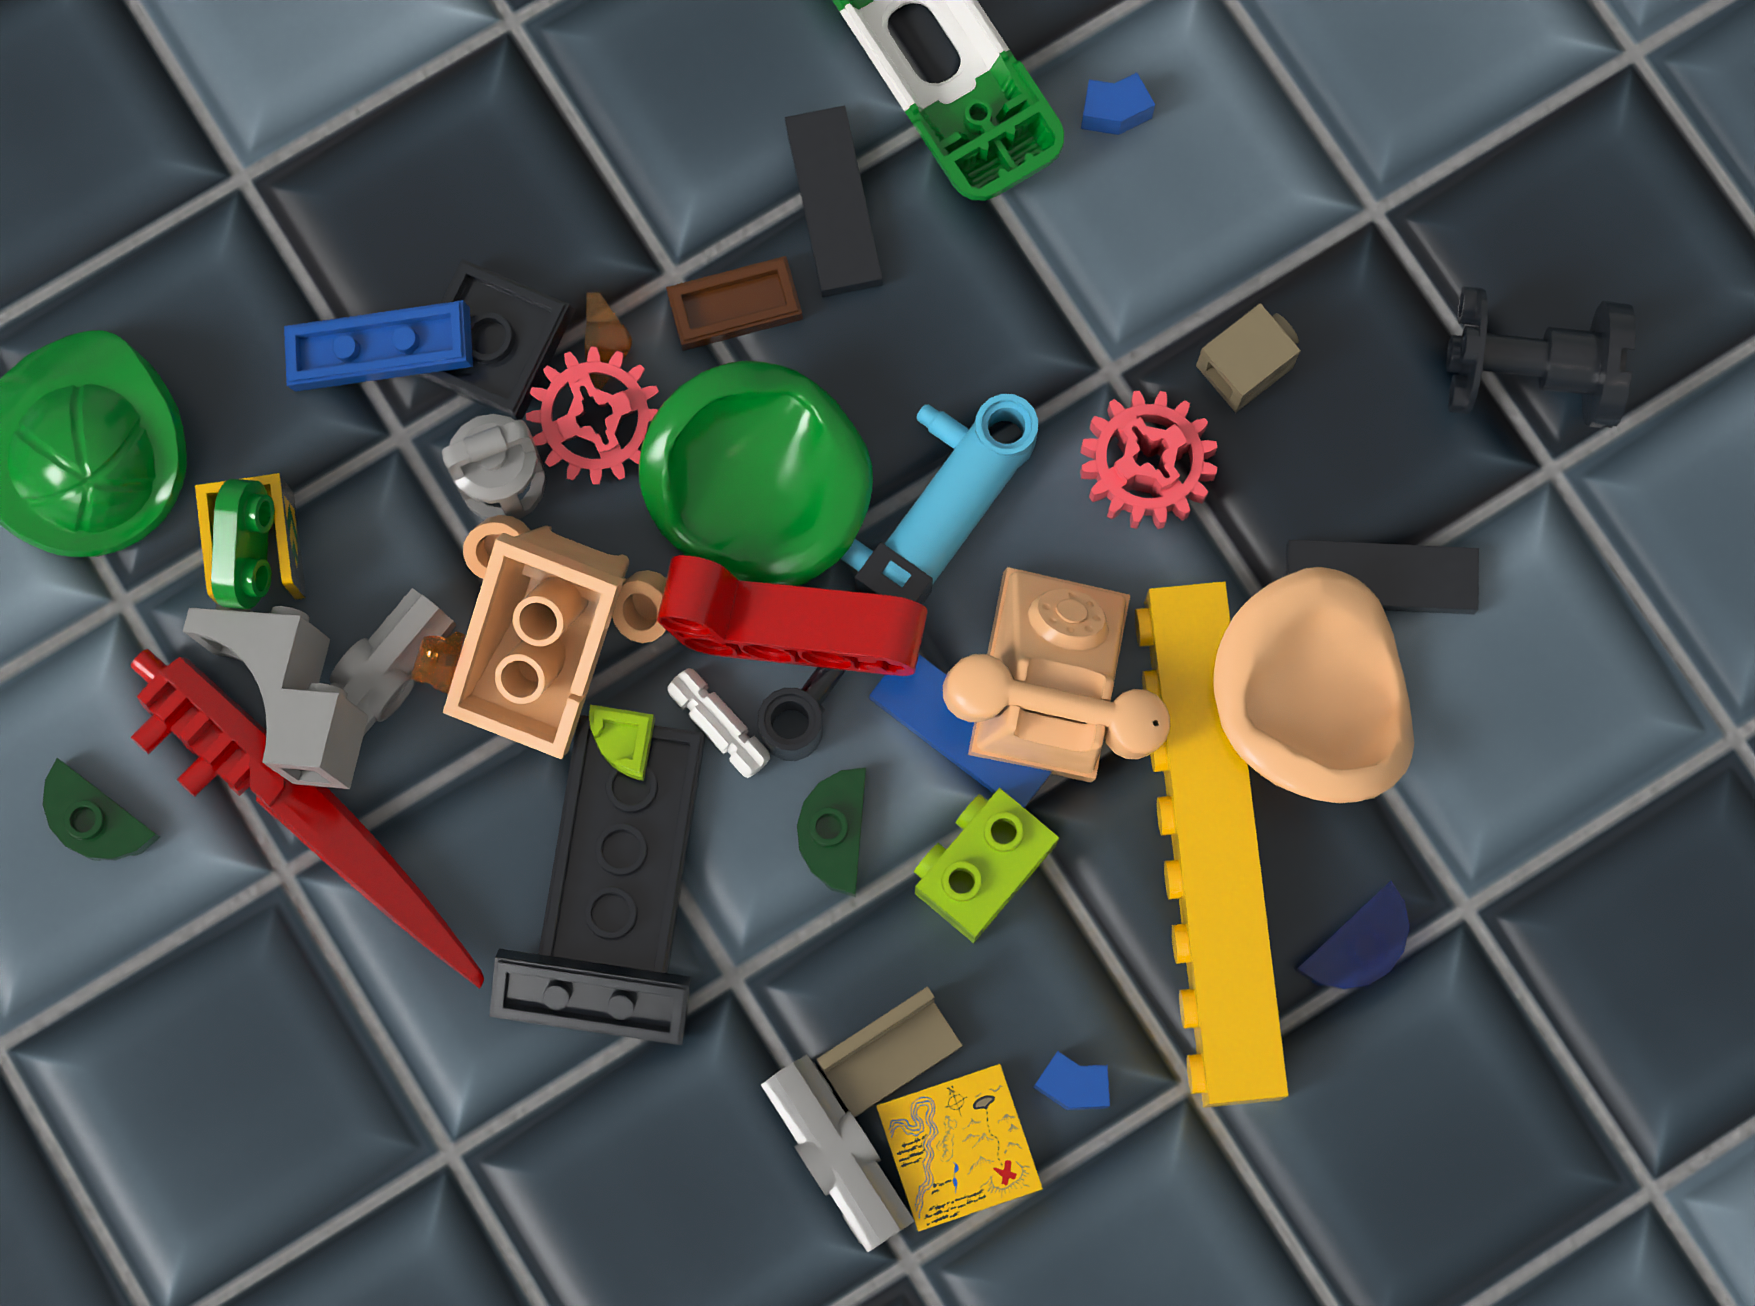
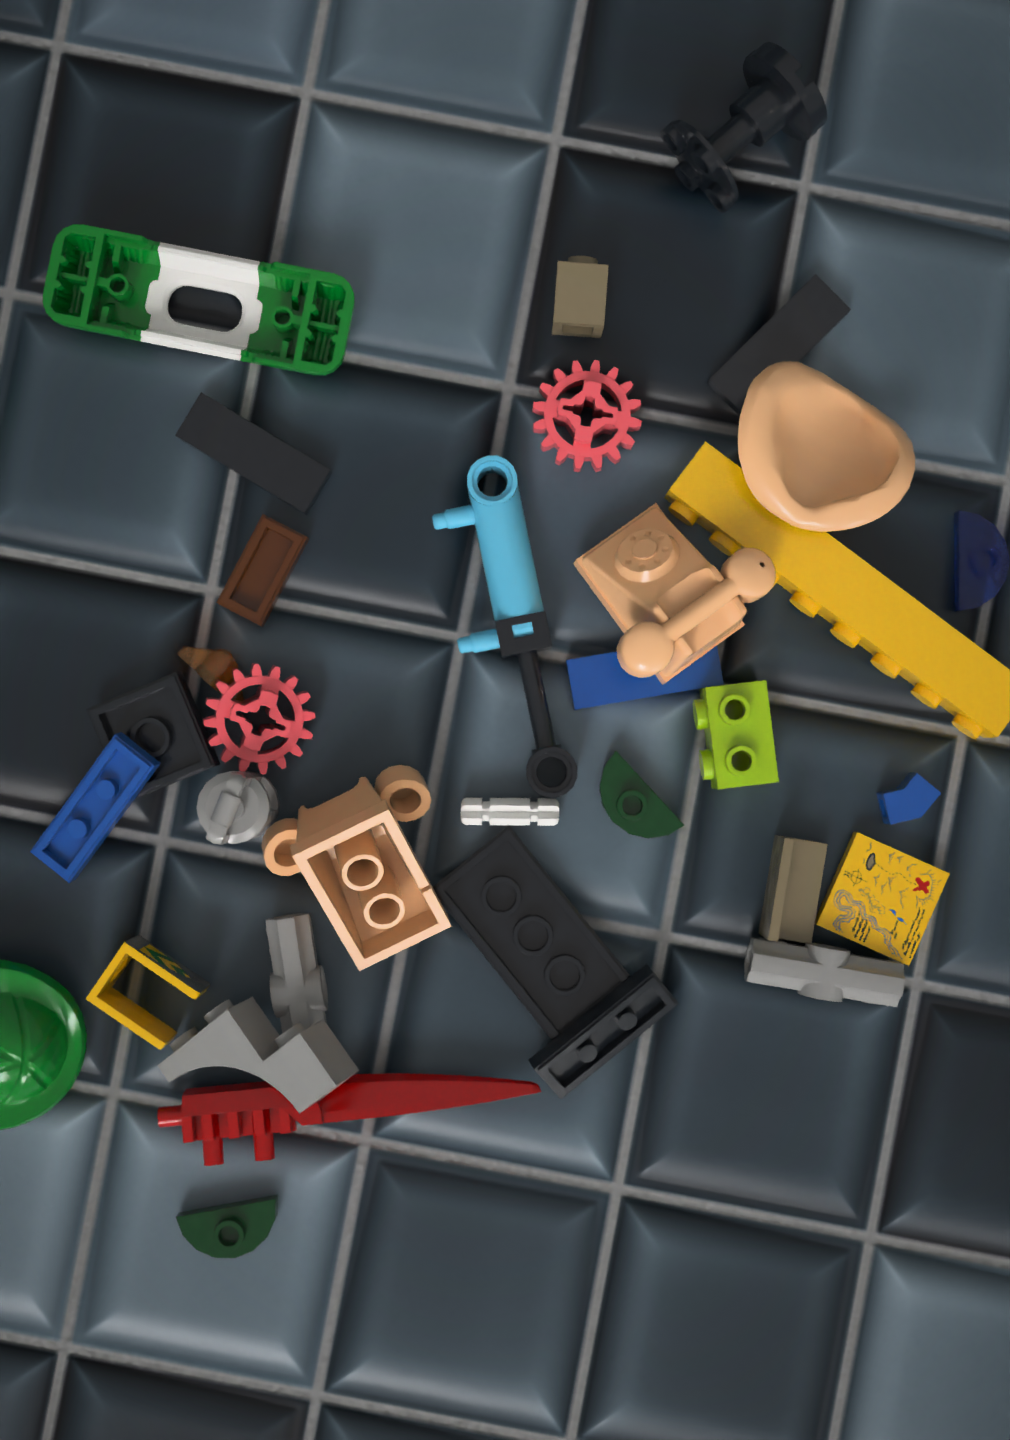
camera: 50 degrees left, 10 degrees up
(241, 544) = (148, 1004): green plate -> none
(438, 660) = (326, 945): clear orange piece -> none
(623, 738) = (470, 877): lime tile -> none
(756, 473) = (386, 656): green piece -> none
(788, 623) = (495, 718): red beam -> none
(1117, 105) = (352, 230): blue piece -> none

